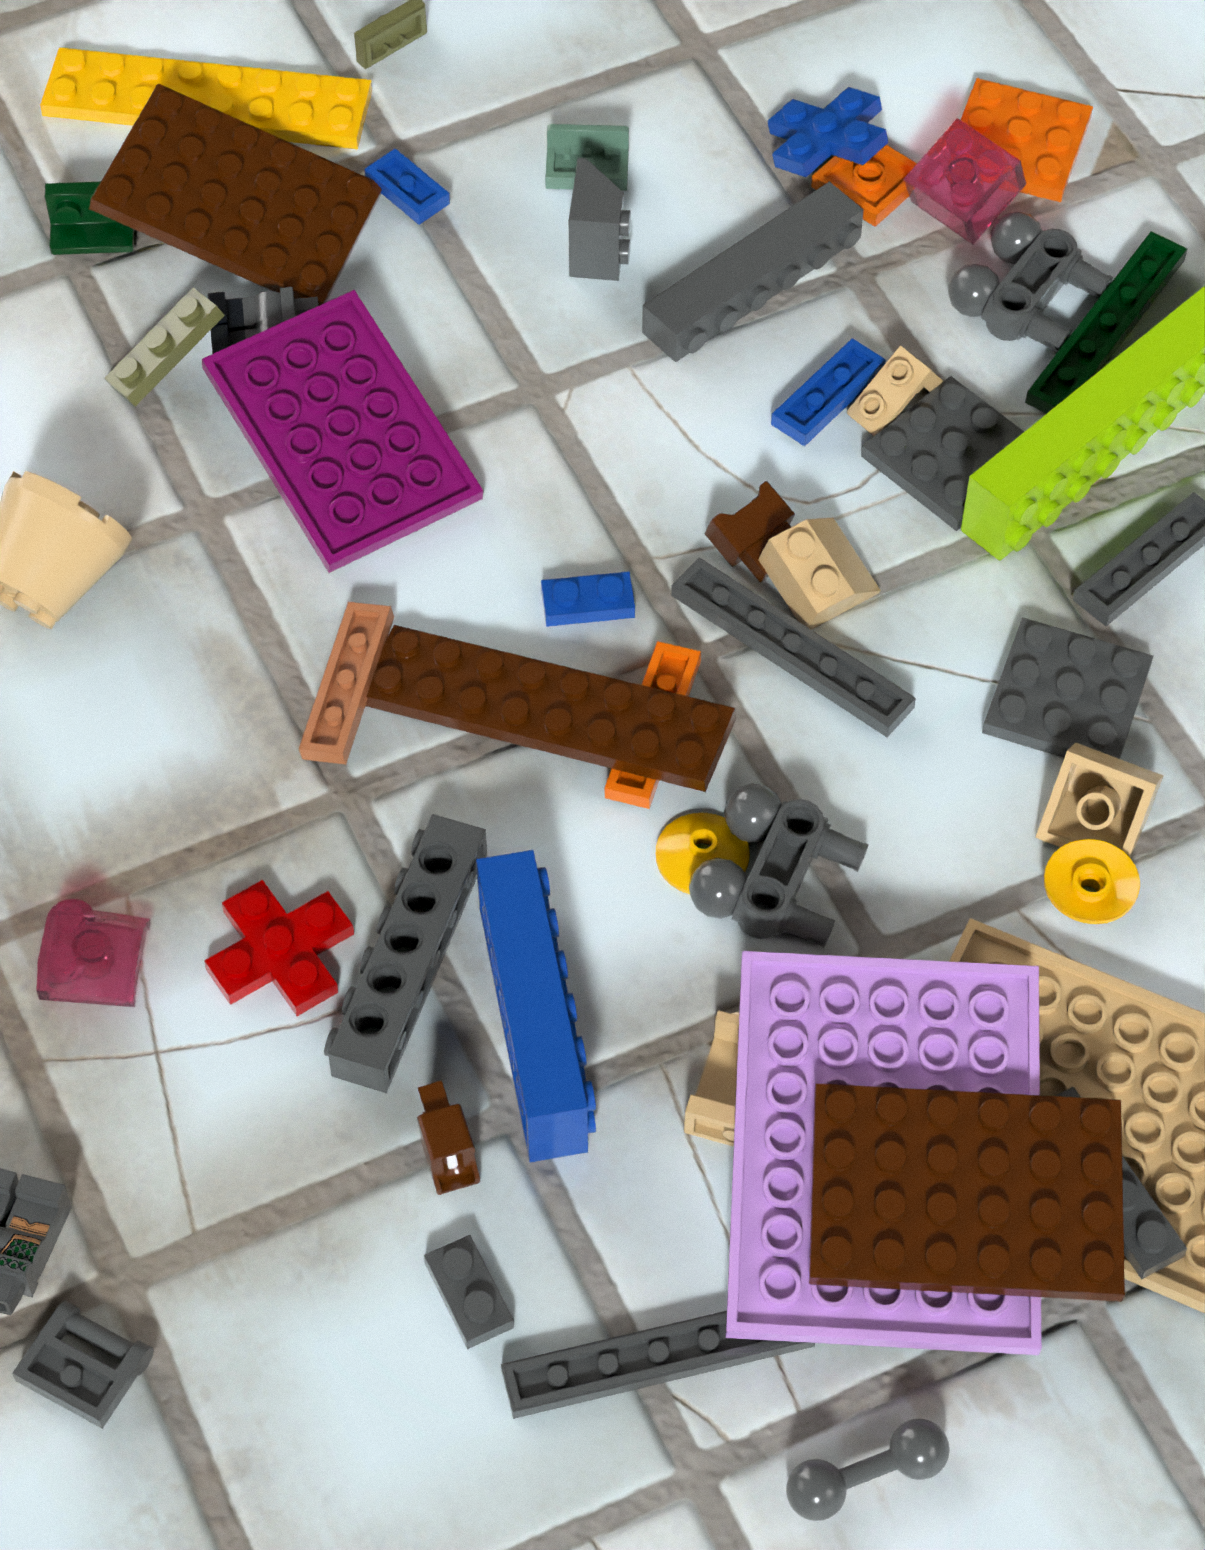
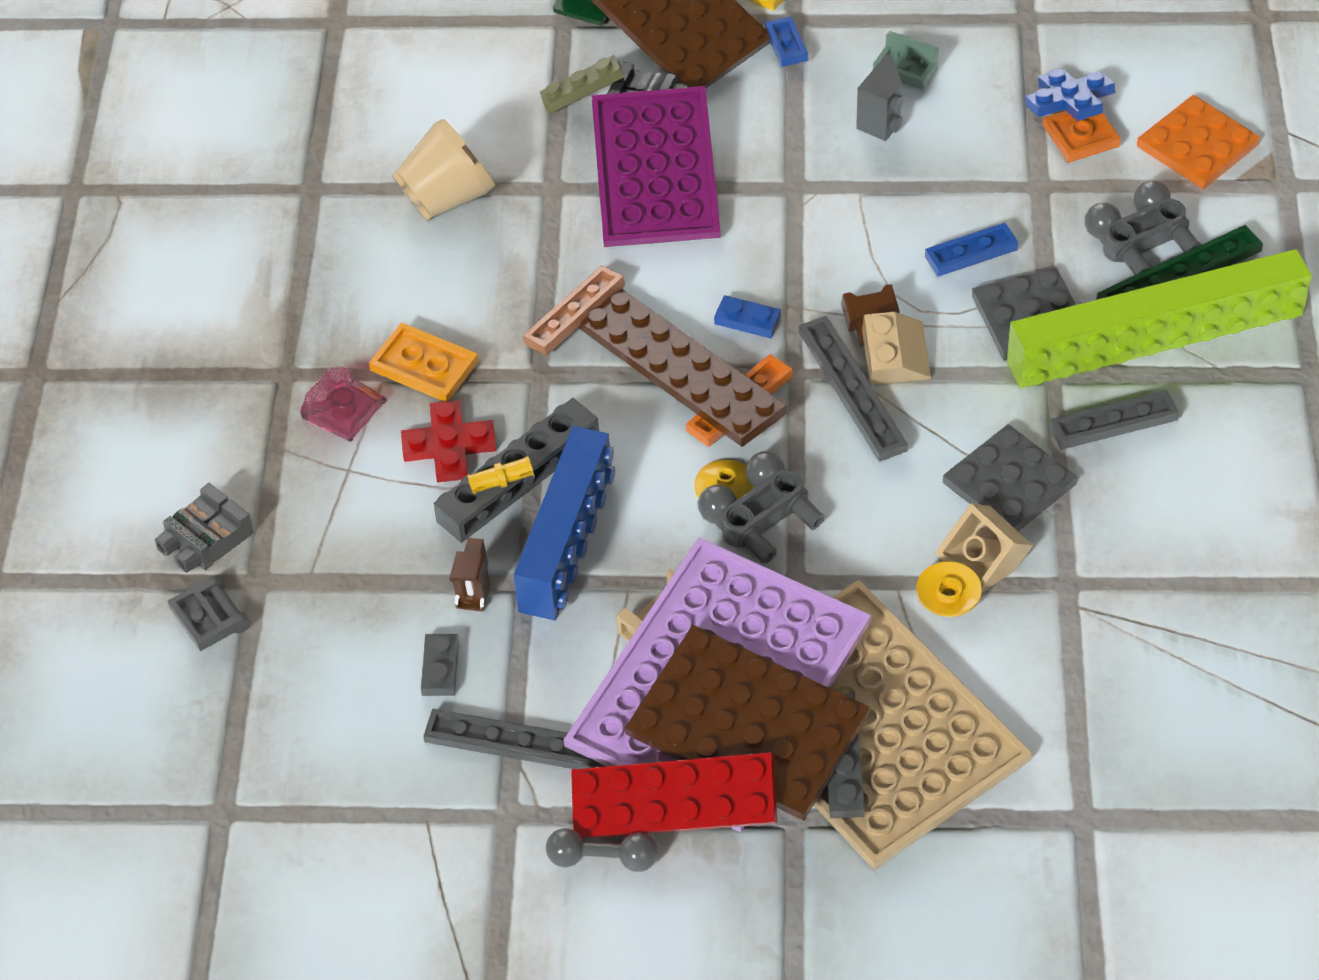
camera: 30 degrees right, 5 degrees down
(176, 844) = (424, 362): none -> light orange plate
(406, 973) = (500, 475): none -> yellow pin
(752, 272) = (969, 162): dark grey brick -> none
(892, 391) = (1013, 259): tan bracket -> none
(932, 1347) = (674, 796): none -> red plate
(965, 181) = (1137, 151): clear pink brick -> none

